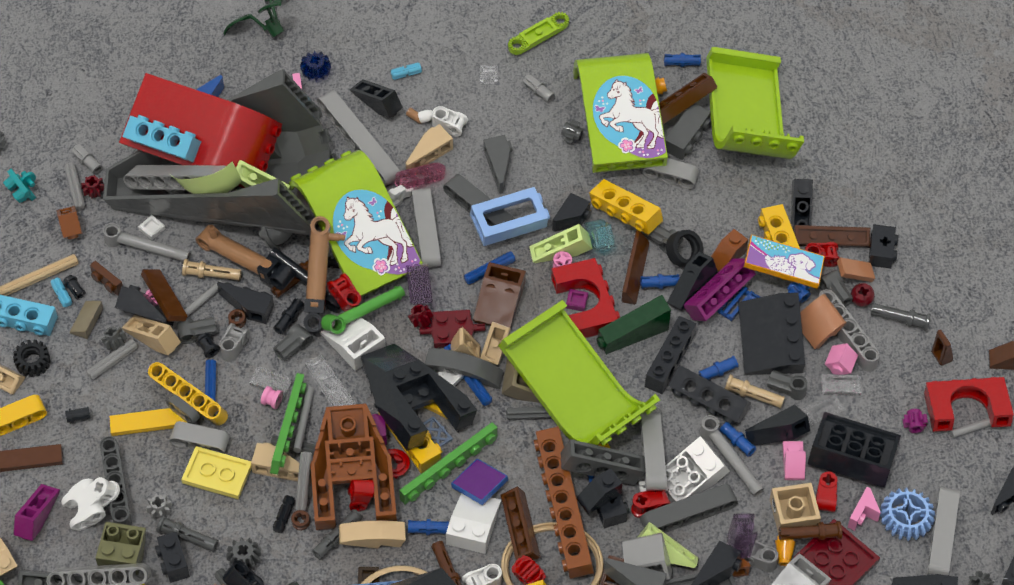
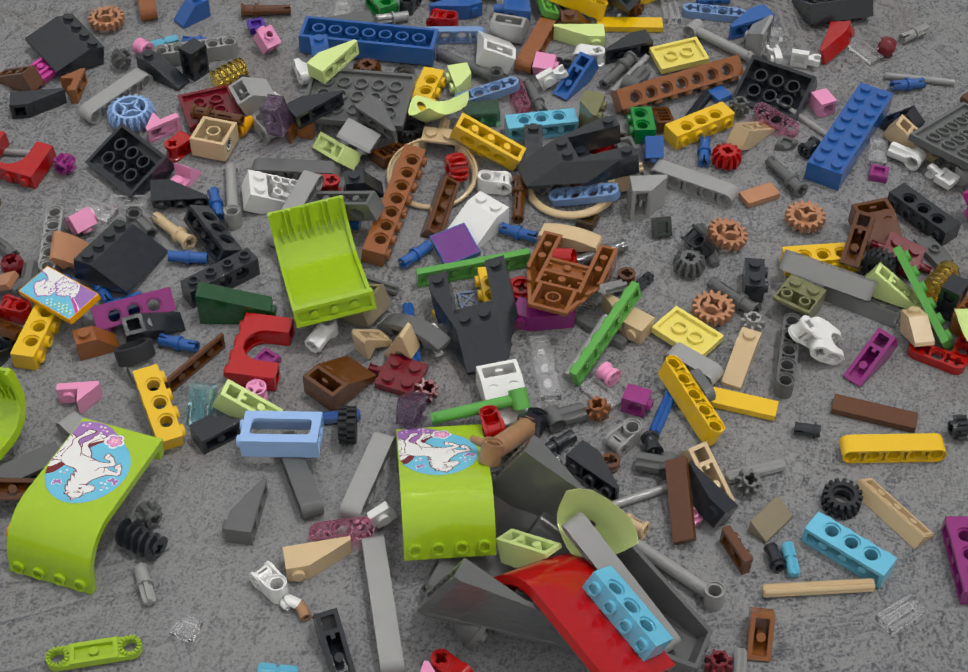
camera: 155 degrees left, 10 degrees down
(157, 465) = (741, 358): none -> tan slope
(199, 502) = (713, 308): none -> nougat gear
(236, 380) = (636, 400): none -> magenta brick
(266, 357) = (598, 409): none -> dark orange gear
(465, 253) = (347, 425): none -> black tyre
(513, 458) = (415, 254): none -> blue pin
(562, 110) = (140, 540): none -> black piece
(702, 204) = (83, 393): none -> bright pink slope
(994, 530) = (74, 84): none -> dark orange slope

